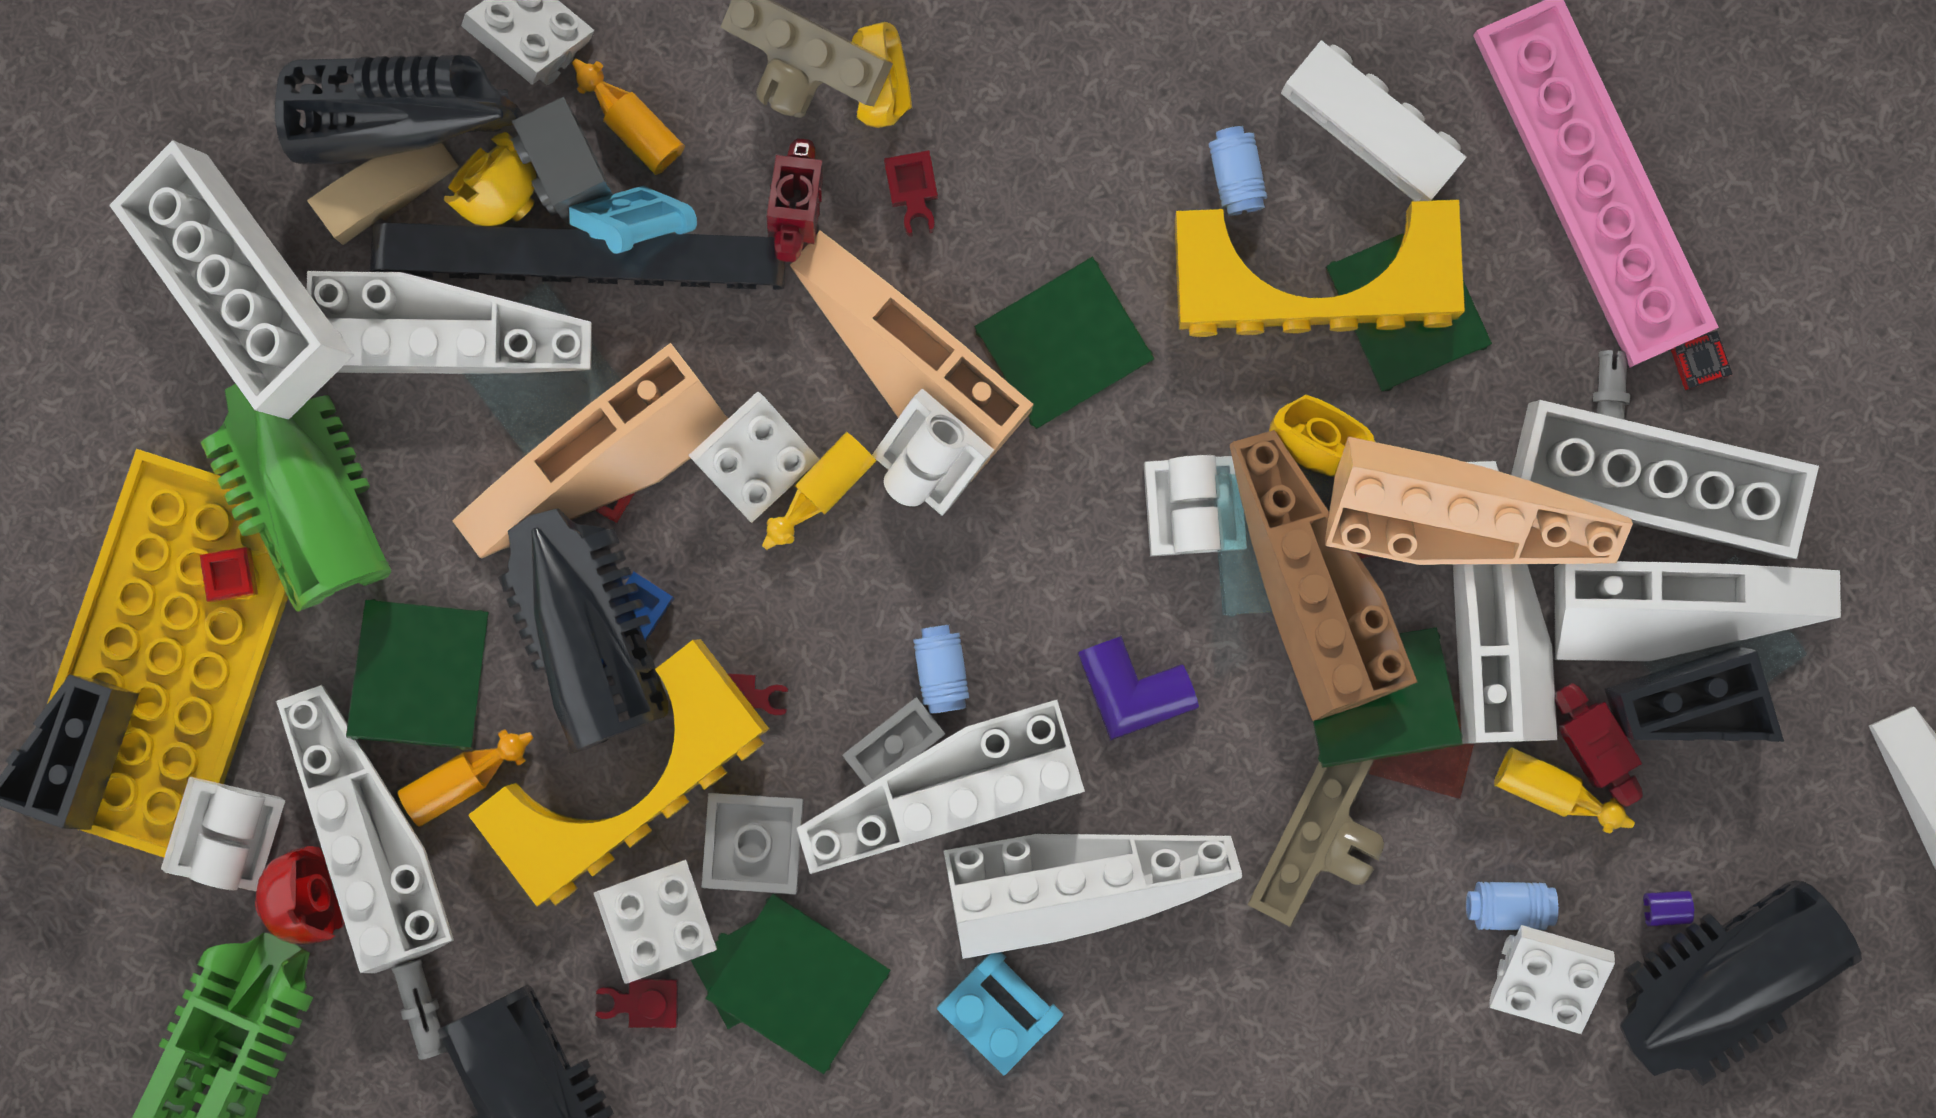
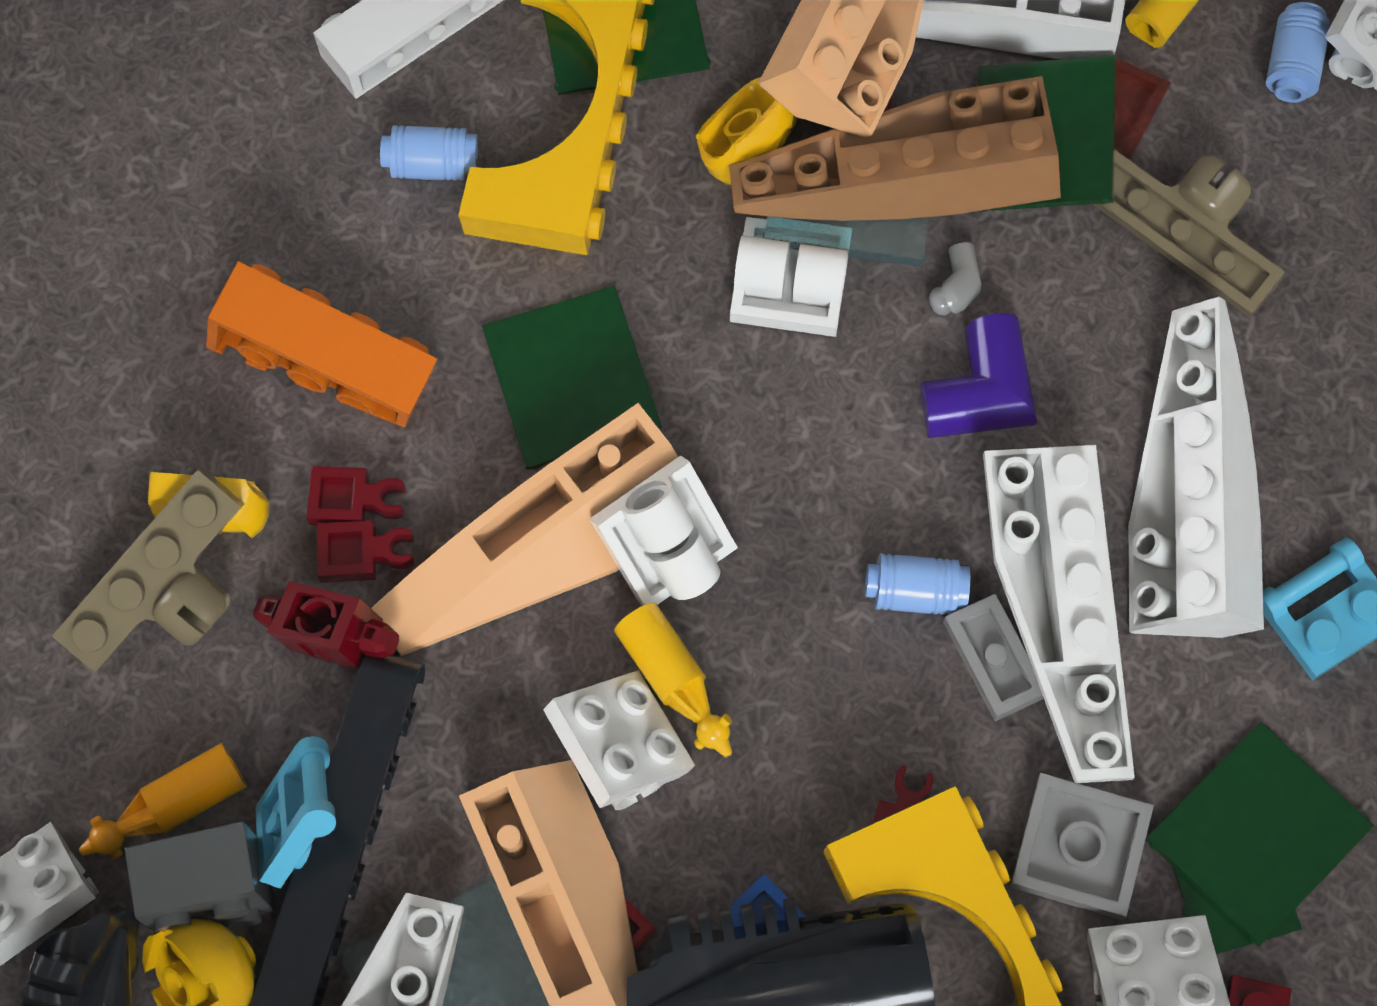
camera: 70 degrees left, 15 degrees down
(866, 205) = (352, 550): none -> dark red plate
(1031, 129) = (318, 344): none -> orange wedge
(1220, 653) = (962, 285): none -> light grey arm

